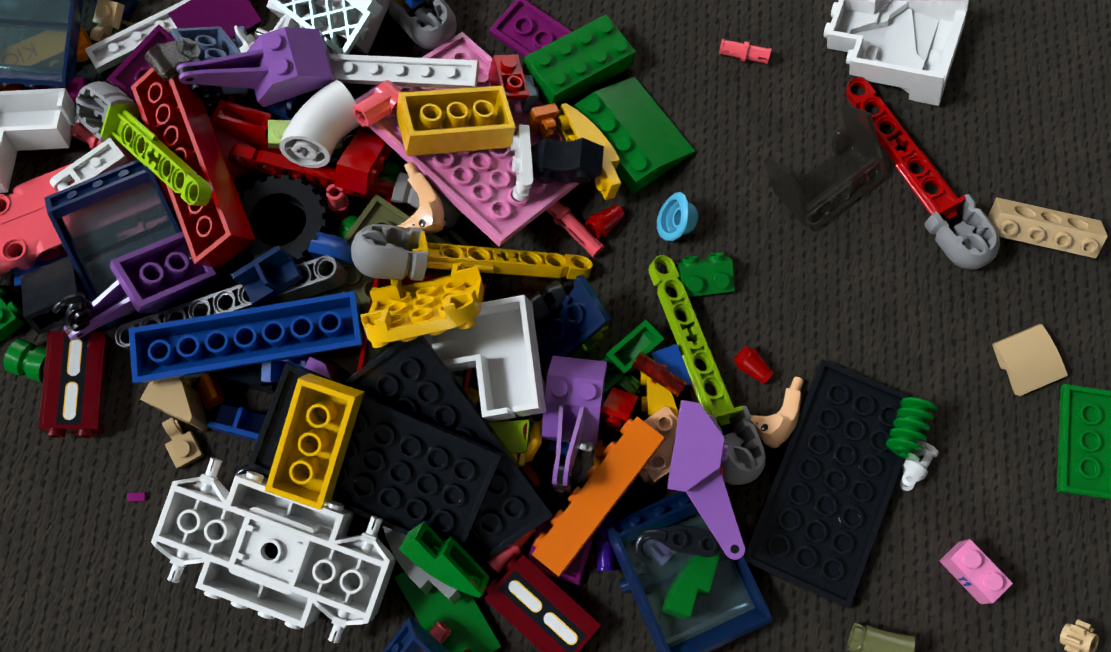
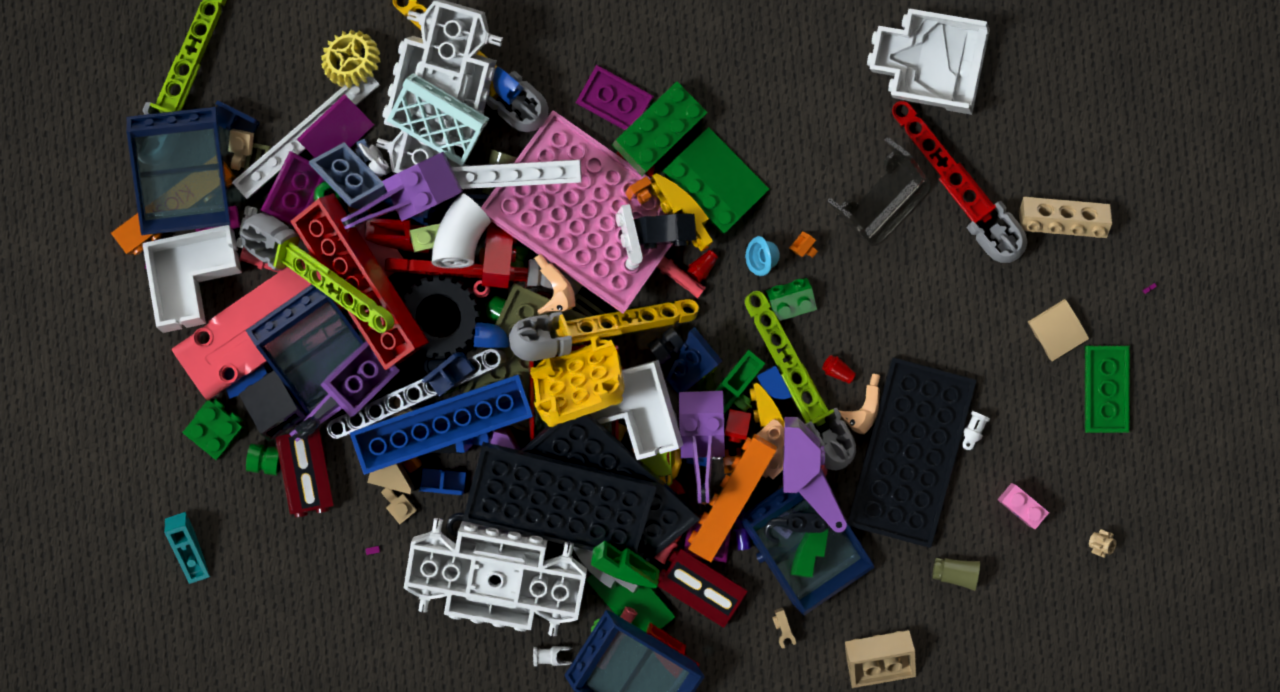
camera: 10 degrees left, 15 degrees up
(96, 162) = (272, 295): white plate -> none
(167, 56) = (330, 203): clear smoke piece -> none
(314, 441) = (516, 499): yellow brick -> none
(377, 105) = (508, 205): coral piece -> none
(454, 120) = (569, 213): yellow brick -> none
(507, 72) = (604, 160): red slope -> none
(528, 103) = (621, 166): sand blue plate -> none
(659, 374) = (765, 394): clear red pin -> none
(728, 216) = (803, 245): none -> orange tile
(745, 51) = (801, 89): coral pin -> none
(909, 427) = (965, 406): green piece -> none

